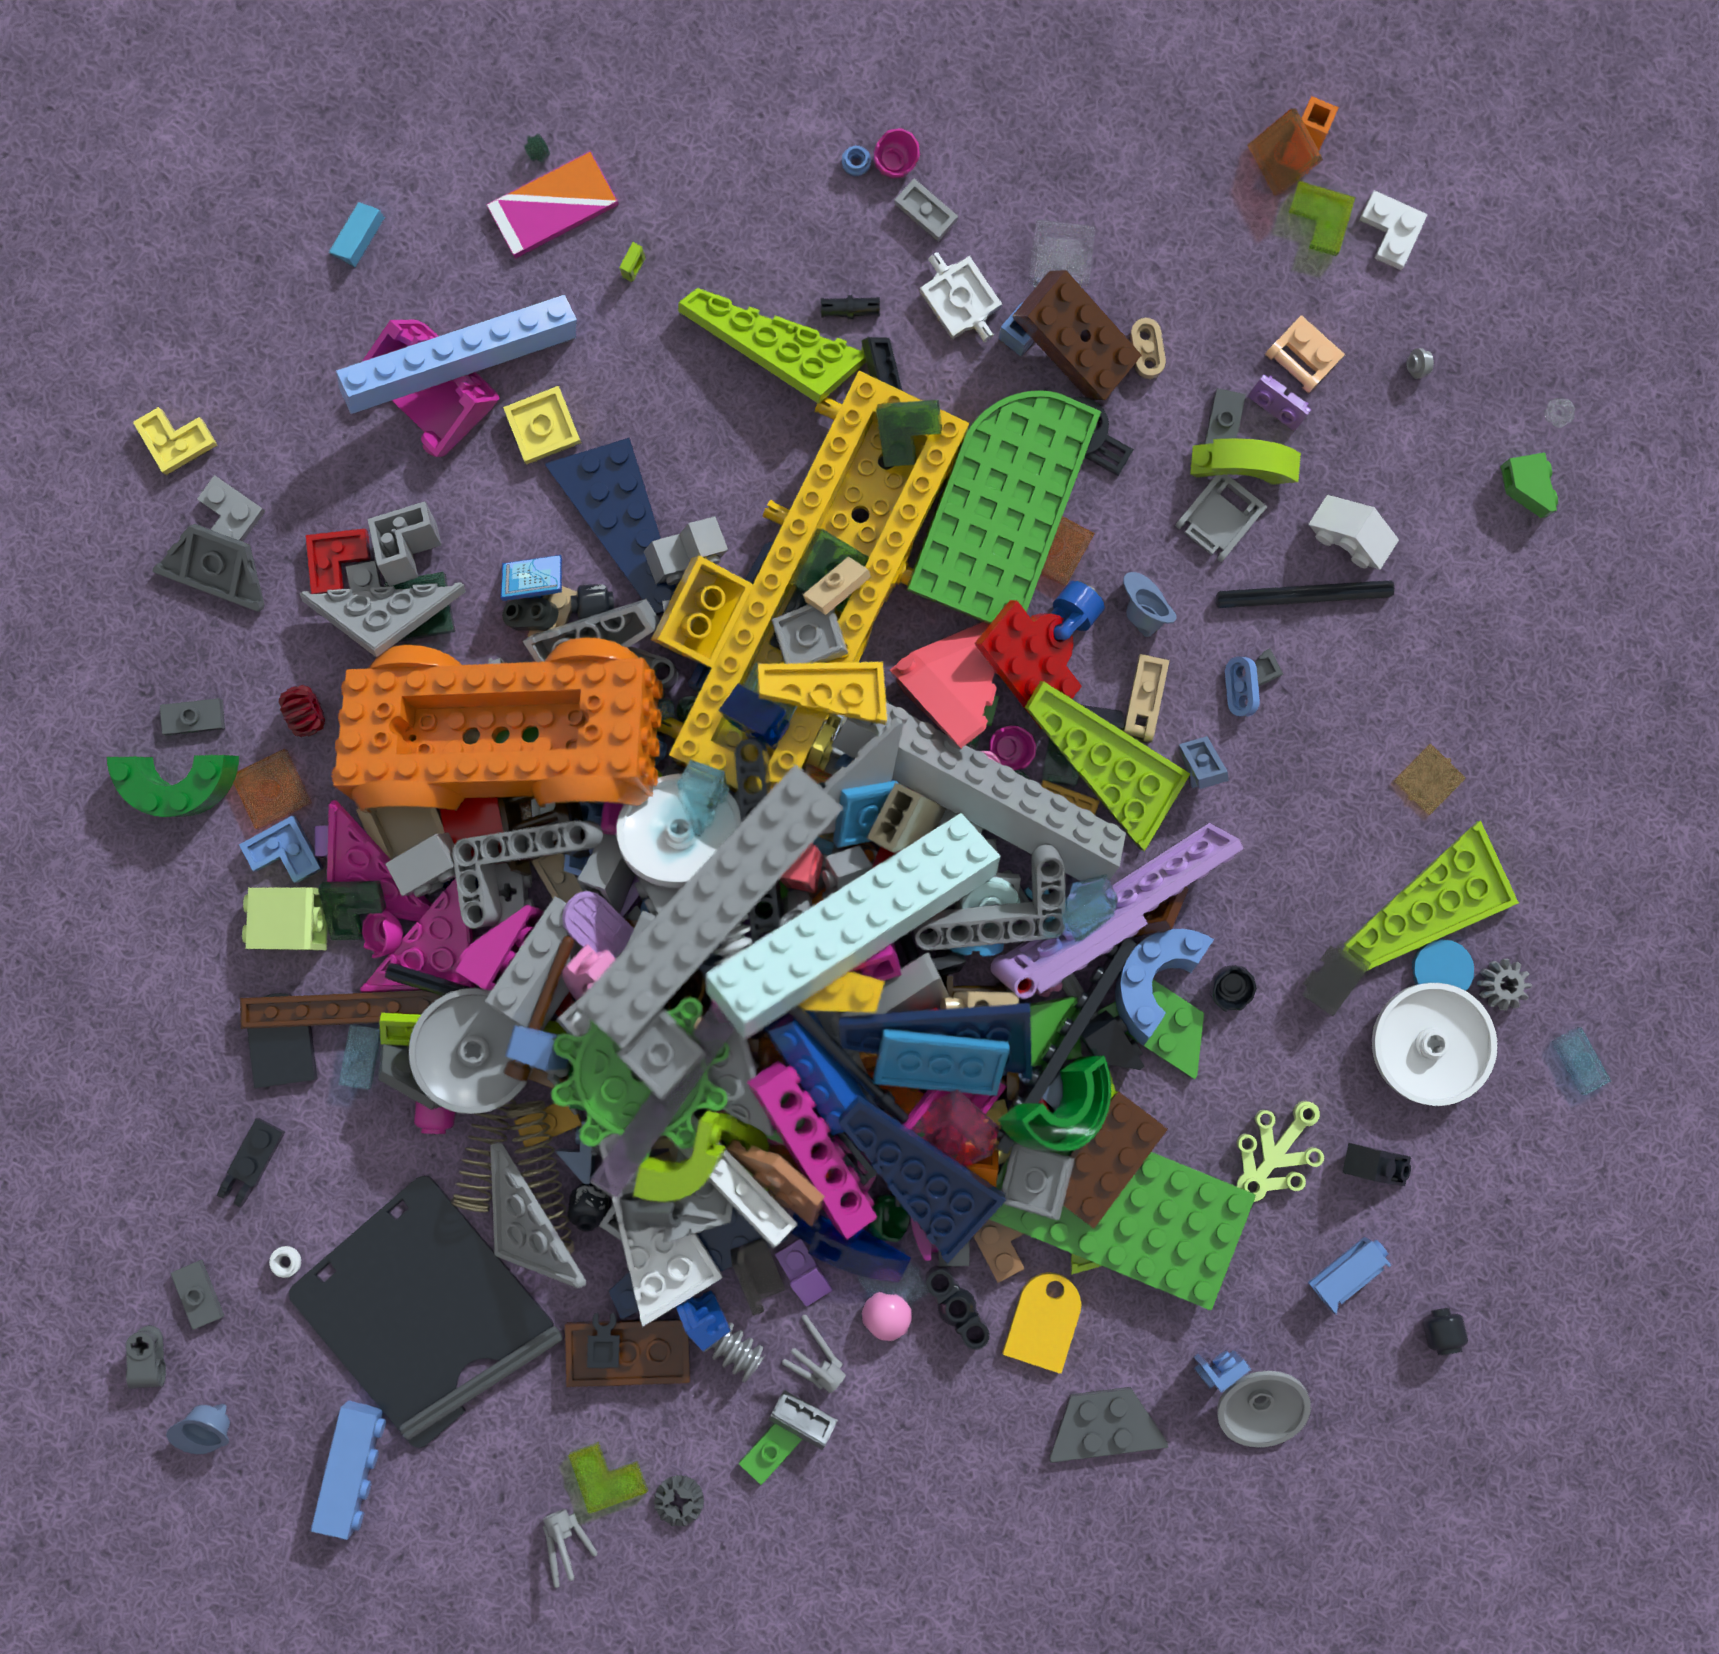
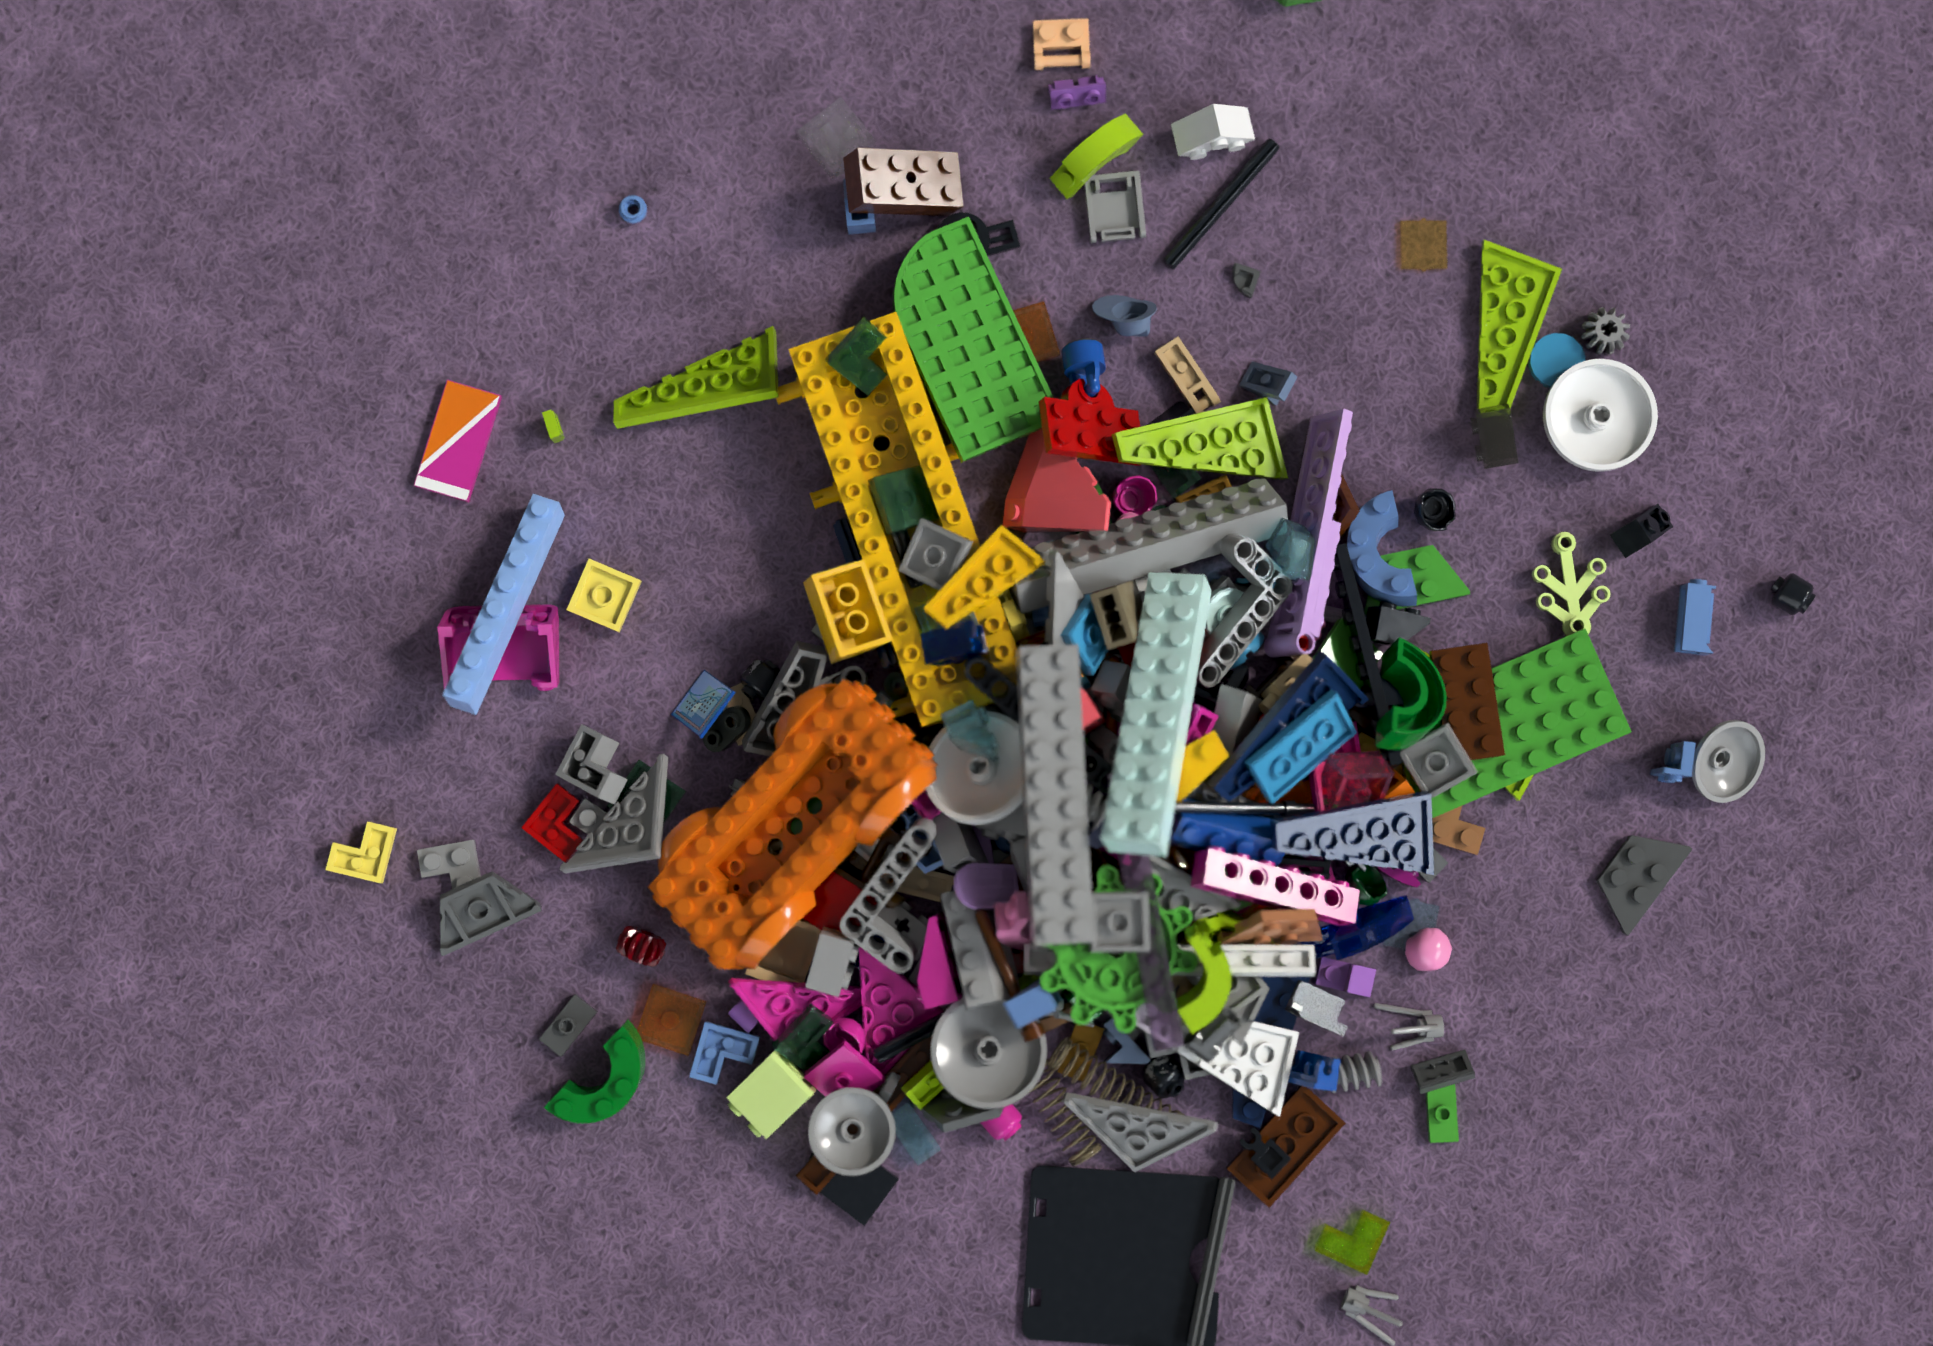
camera: 45 degrees left, 0 degrees up
(251, 1159) = (910, 1273): black hinge -> none
(276, 1265) = (1005, 1326): white plate -> none
(290, 1011) = (849, 1152): none -> light grey dish
(351, 961) = (843, 1069): none -> dark pink plate
(357, 233) = (344, 592): medium azure slope -> none
(369, 1003) = (889, 1086): none -> dark grey tile
(537, 148) = (409, 413): clear green plate -> none
(615, 504) = (708, 600): dark blue wing -> none
(672, 554) = (786, 591): light grey brick -> none
(686, 1488) = (1403, 1211): dark grey gear -> none
(837, 585) = (920, 505): tan plate -> none
(850, 307) = (729, 311): black pin -> none
(881, 360) = (789, 328): black plate -> none
(896, 153) = (656, 178): dark pink hair -> none
(926, 210) = (713, 196): light grey plate -> none
(960, 297) = (796, 232): white plate -> none
(964, 1320) = (1481, 899): black piece -> none
(1043, 1324) = (1534, 851): yellow tile -> none
(1150, 349) = (956, 142): tan plate -> none
(1225, 415) = (1051, 138): dark grey plate -> none
(1241, 687) = (1242, 306): medium blue plate -> none
(1581, 1061) = (1703, 331): clear light blue plate -> none

